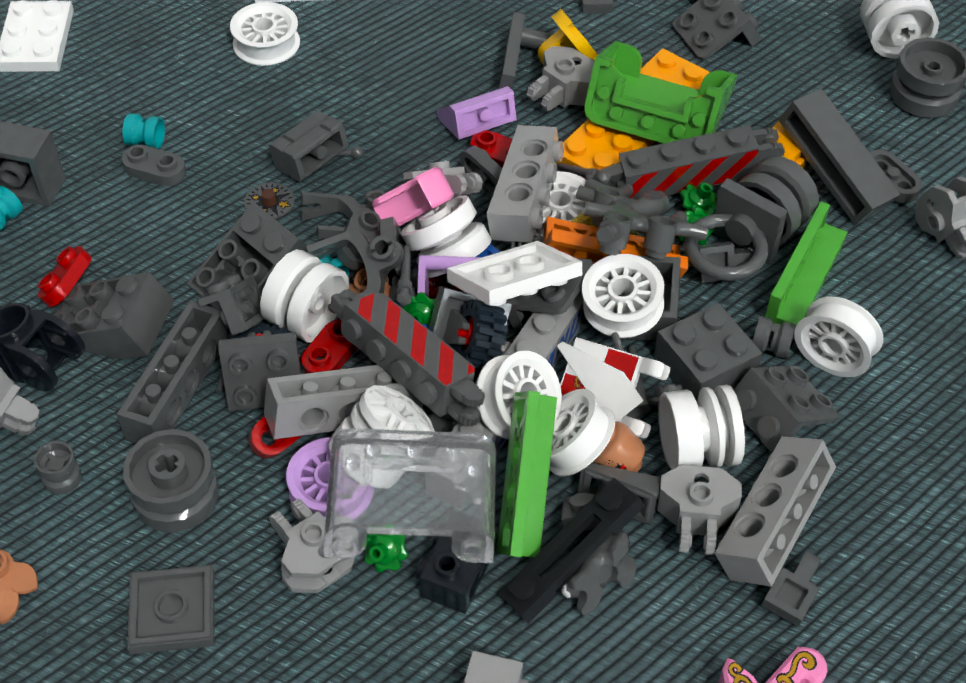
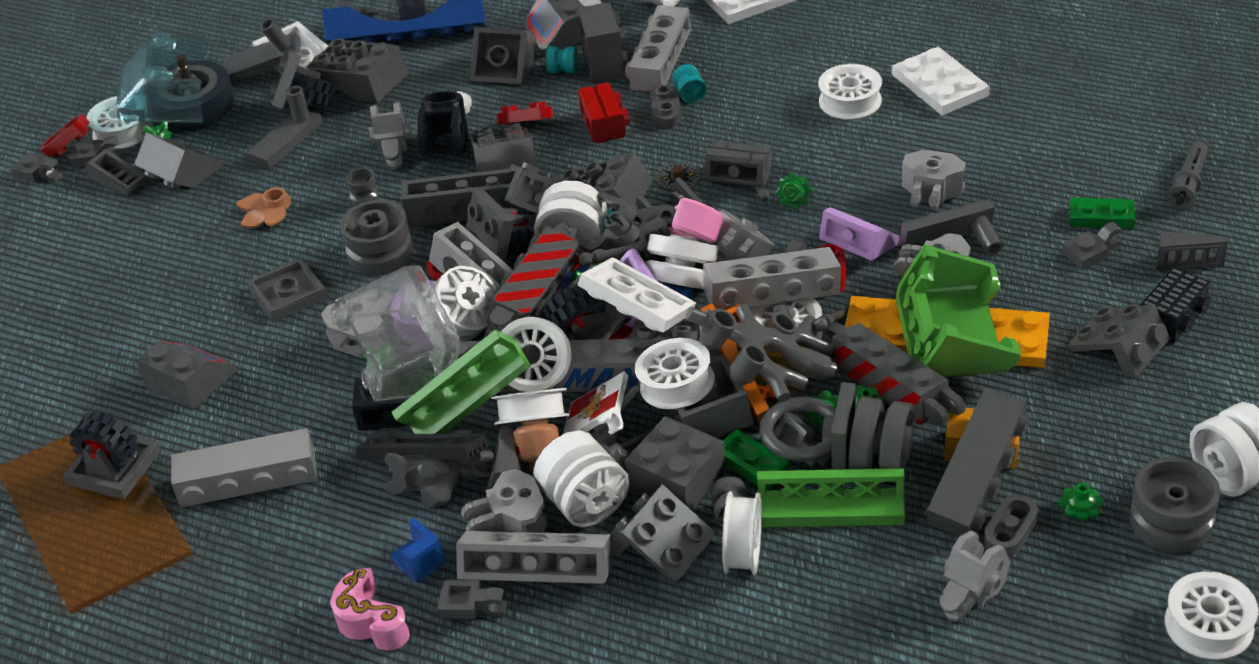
camera: 70 degrees right, 10 degrees down
(78, 139) = (658, 48): none -> light grey brick
(125, 212) = (603, 112): none -> red brick
(380, 127) = (794, 191): none -> green plant
(449, 37) = (932, 177): none -> light grey hinge
(566, 37) = (994, 243): yellow tile -> none
(607, 383) = (593, 406): white sticker -> none
(703, 612) = (419, 555): none -> blue panel
(736, 297) = (749, 456): none -> green plate
(888, 126) = (1081, 502): none -> green plant

